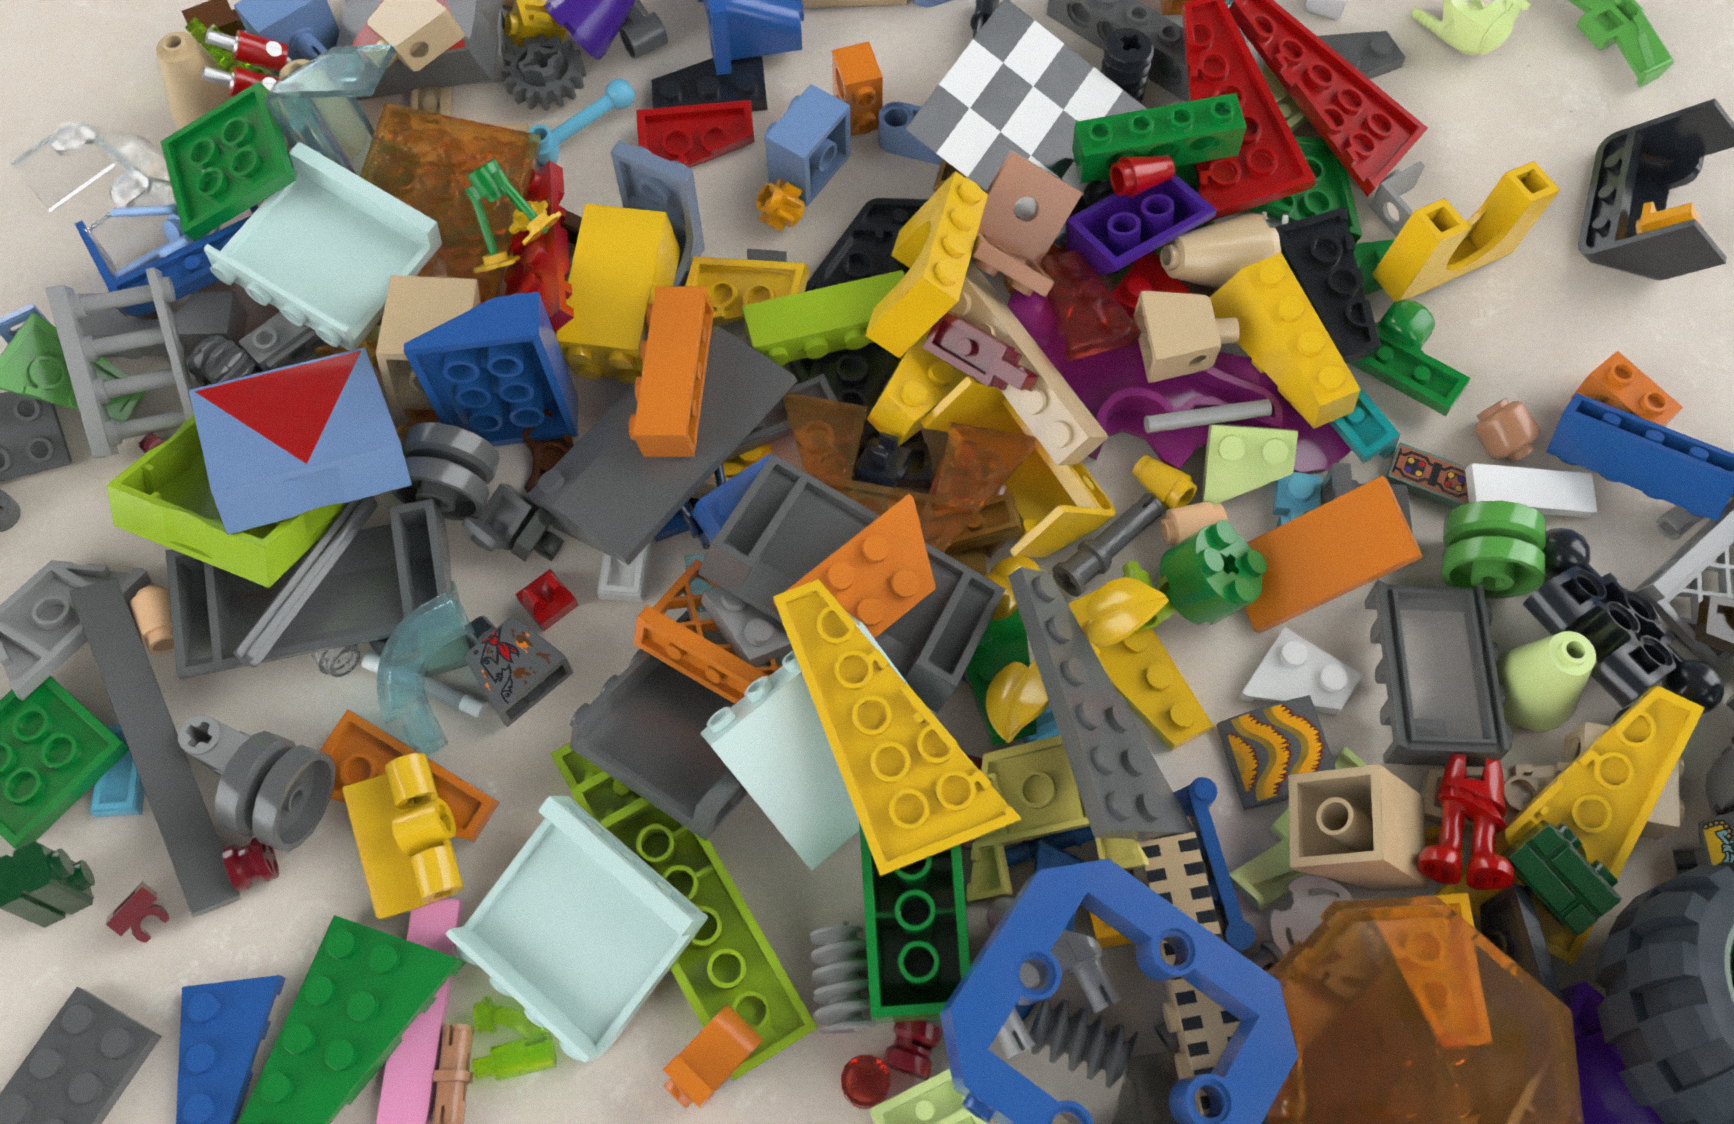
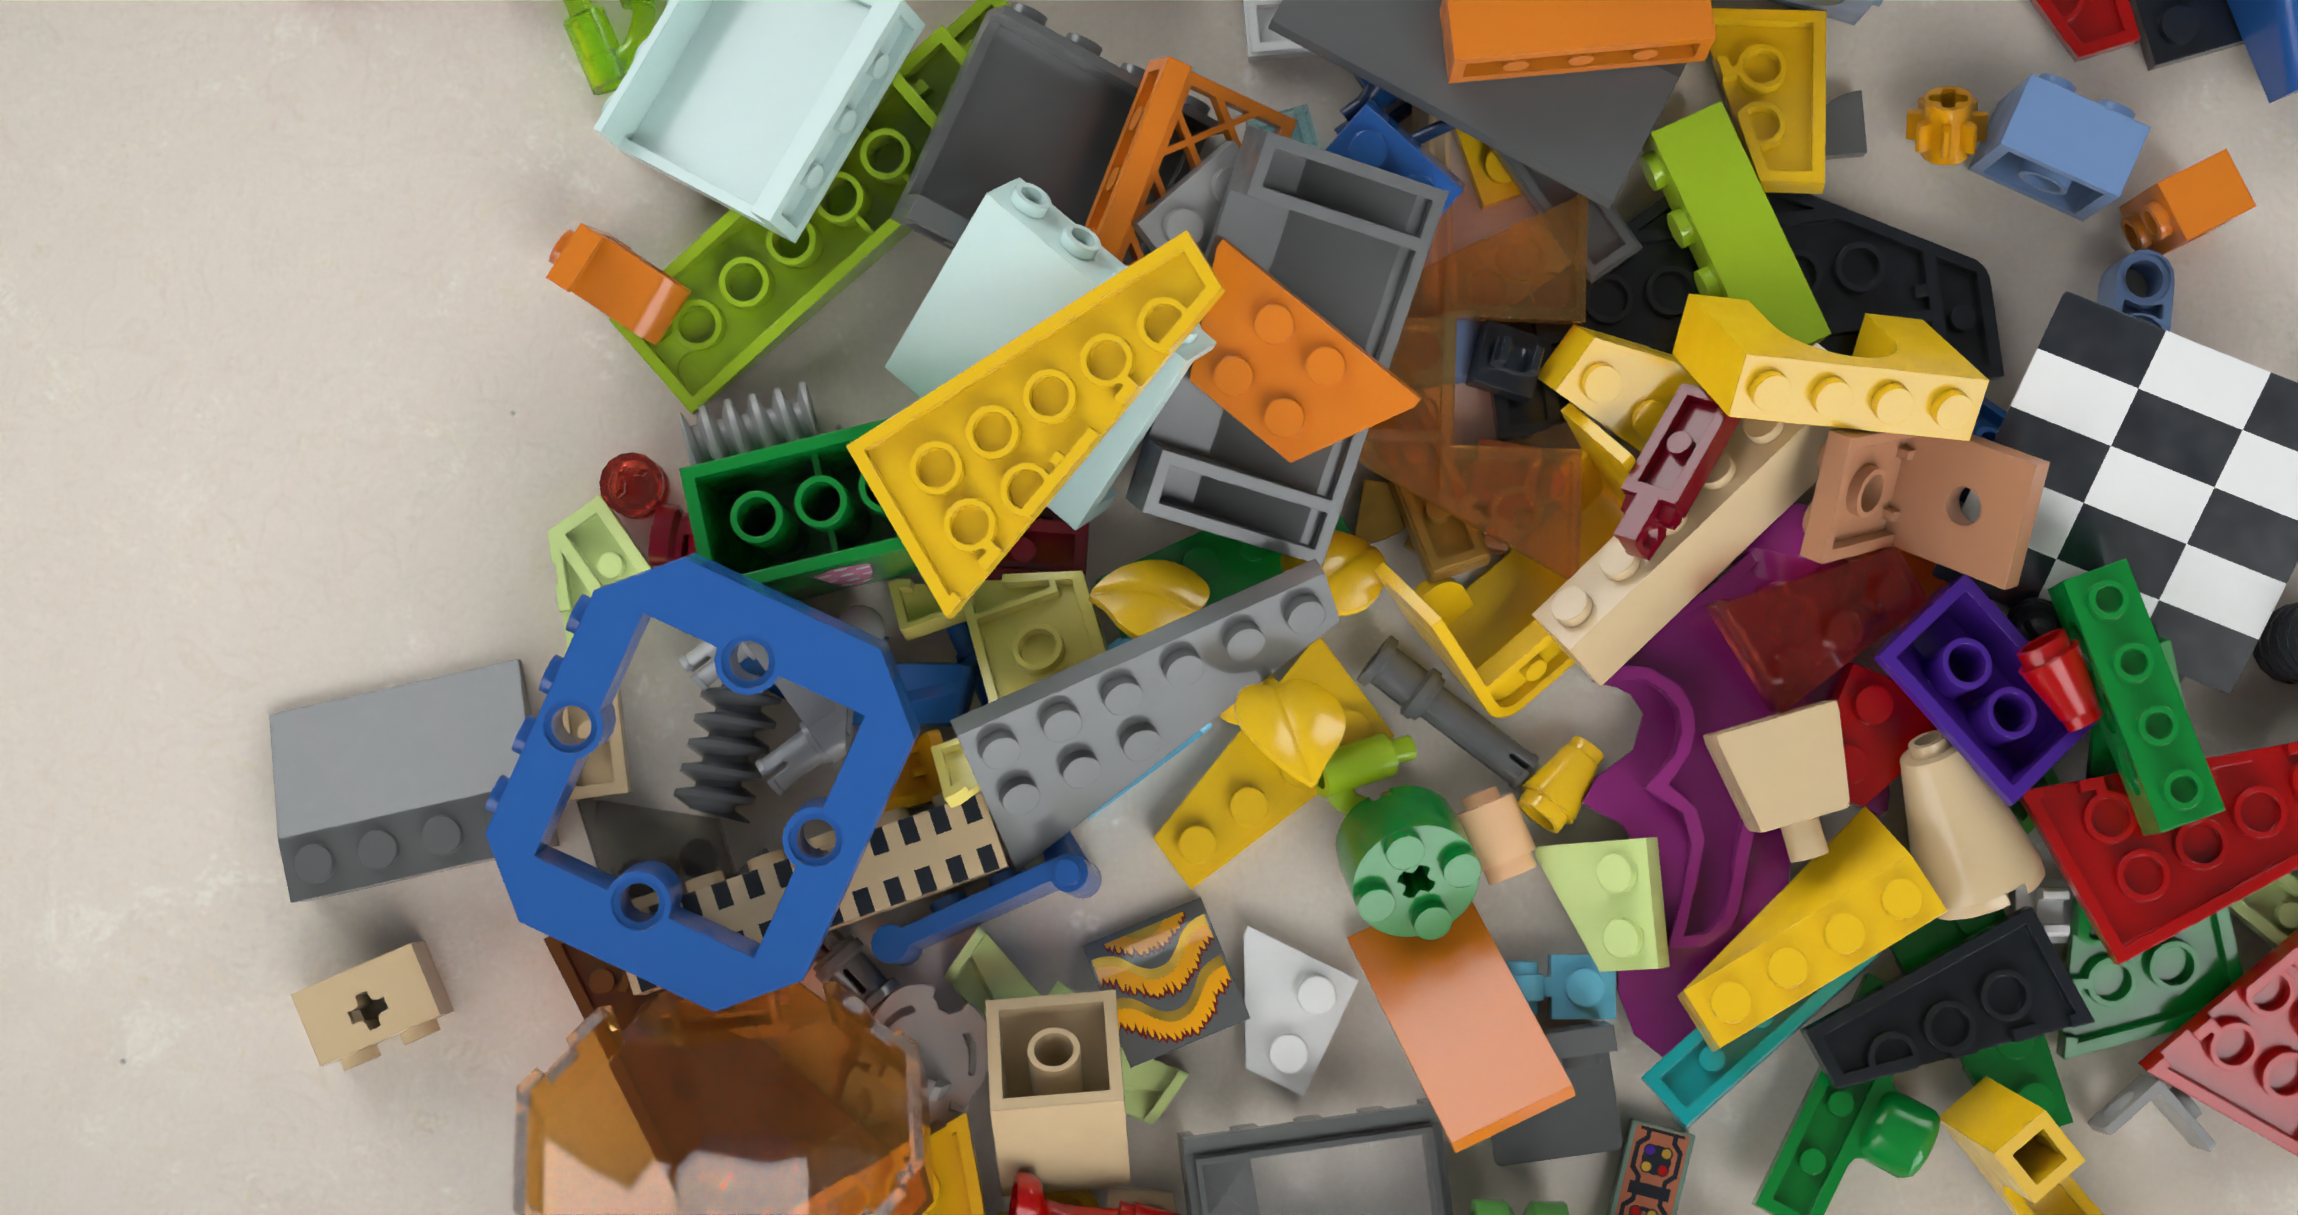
camera: 80 degrees right, 20 degrees up
(1207, 415) = (1662, 831): light grey bar -> none

